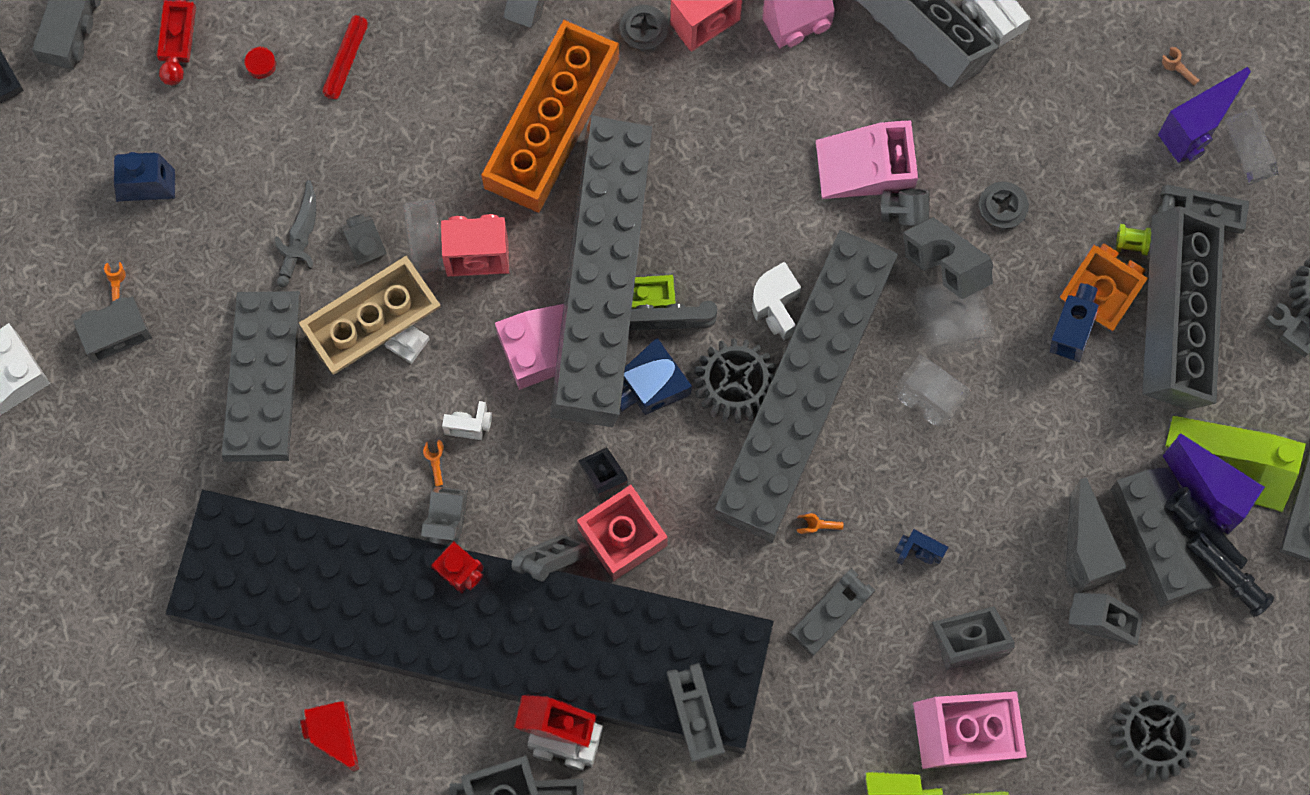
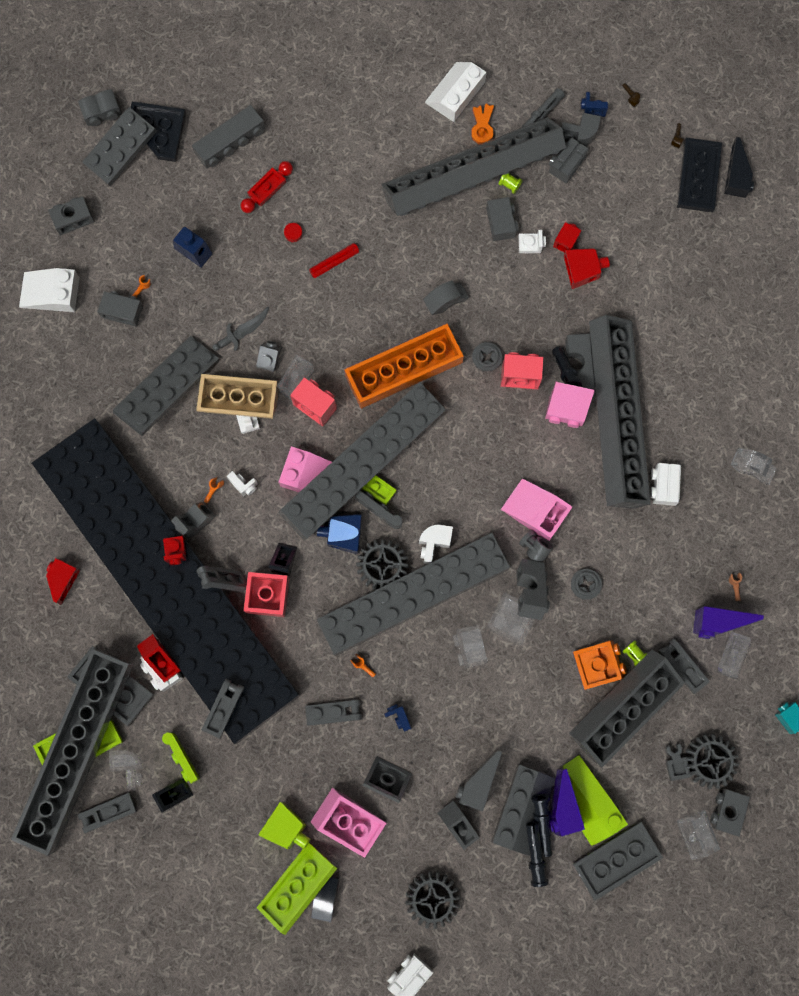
camera: 40 degrees right, 5 degrees up
(1072, 333) = (559, 676): dark blue torso -> none

